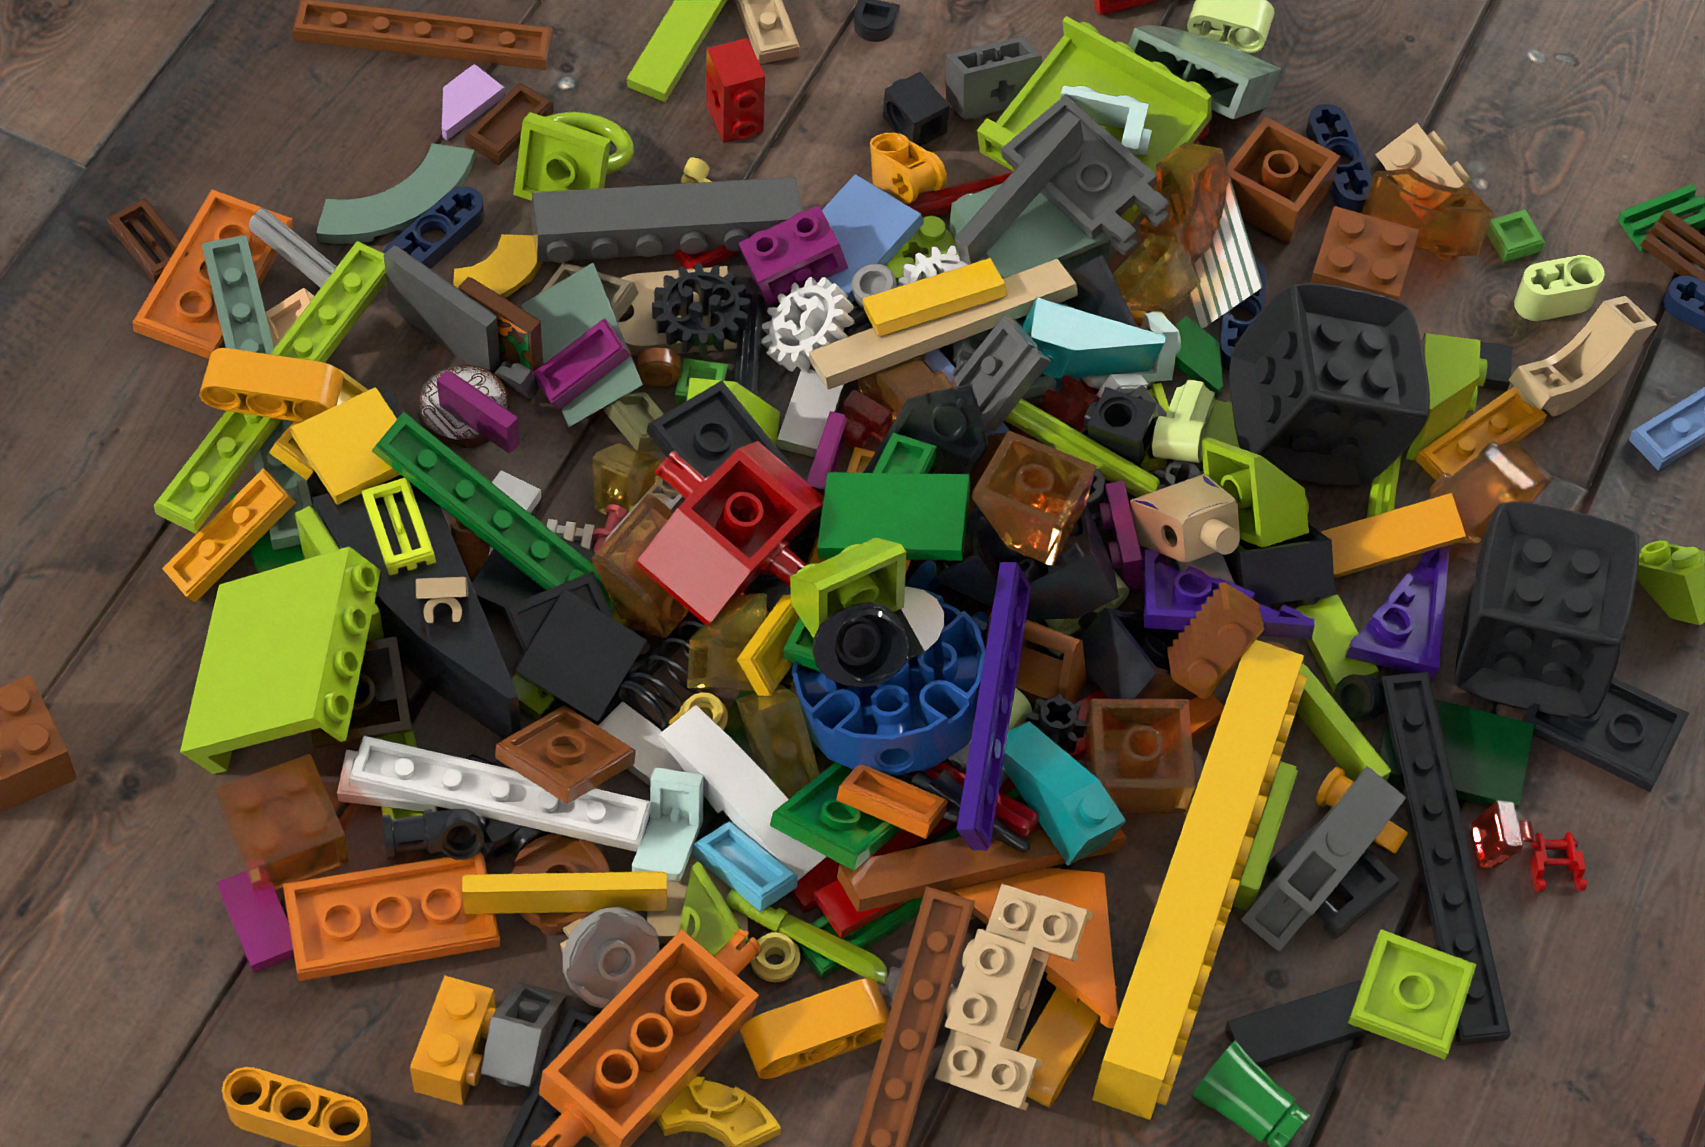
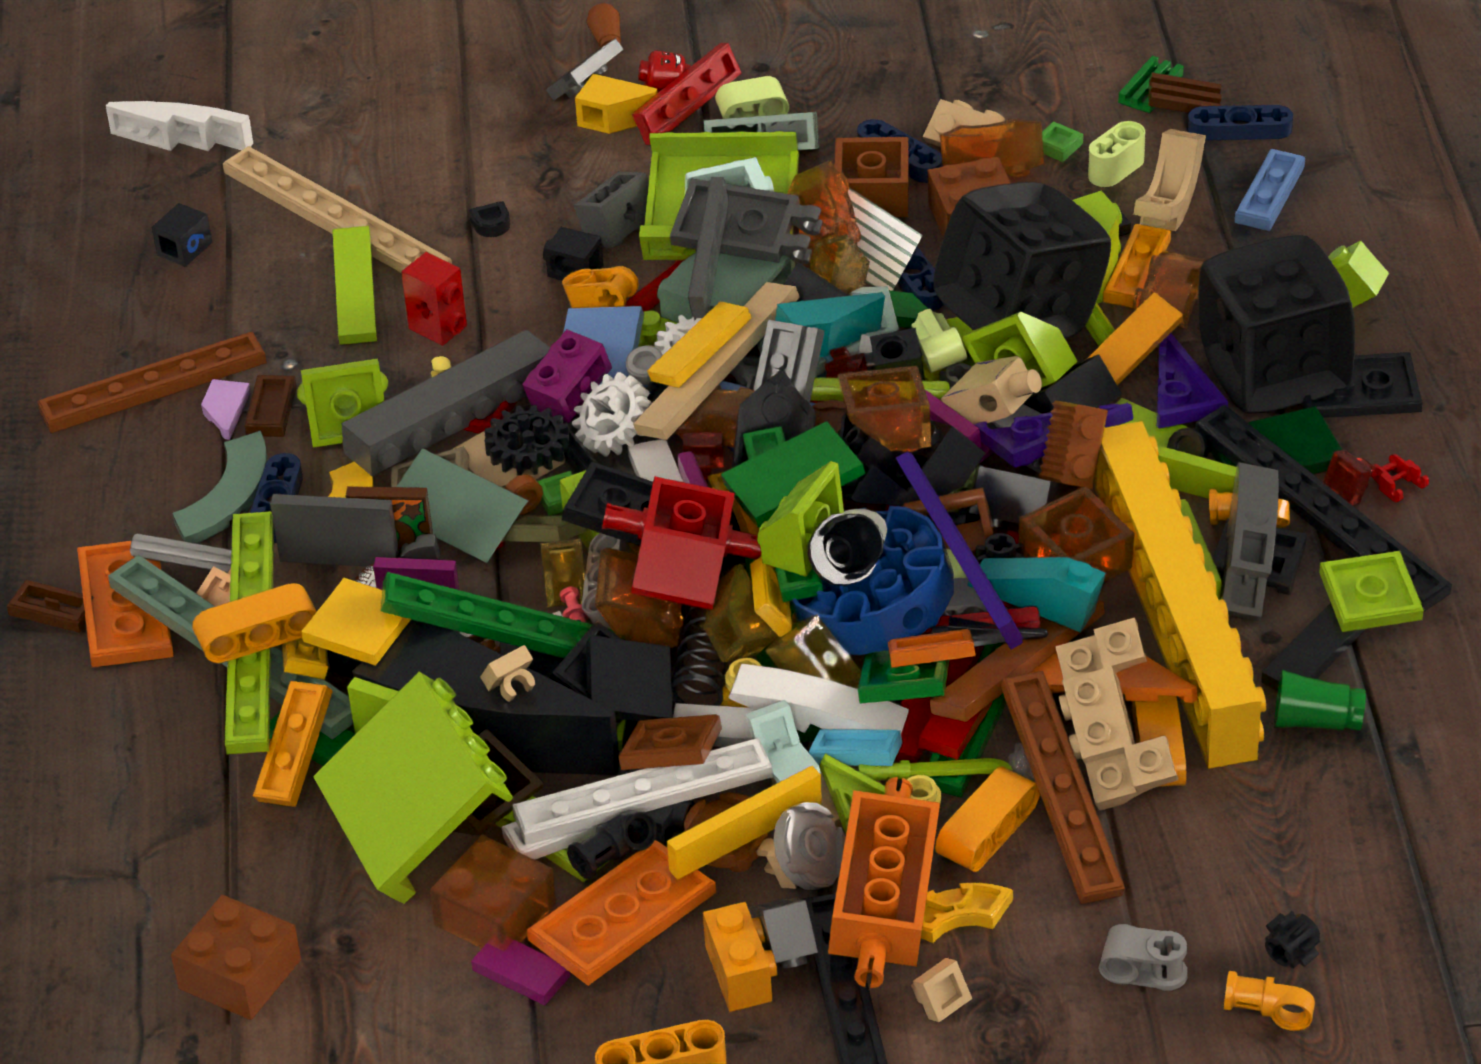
camera: 25 degrees left, 15 degrees down
(408, 557) = (429, 657): neon yellow tile -> none
(581, 364) = (468, 513): magenta tile -> none

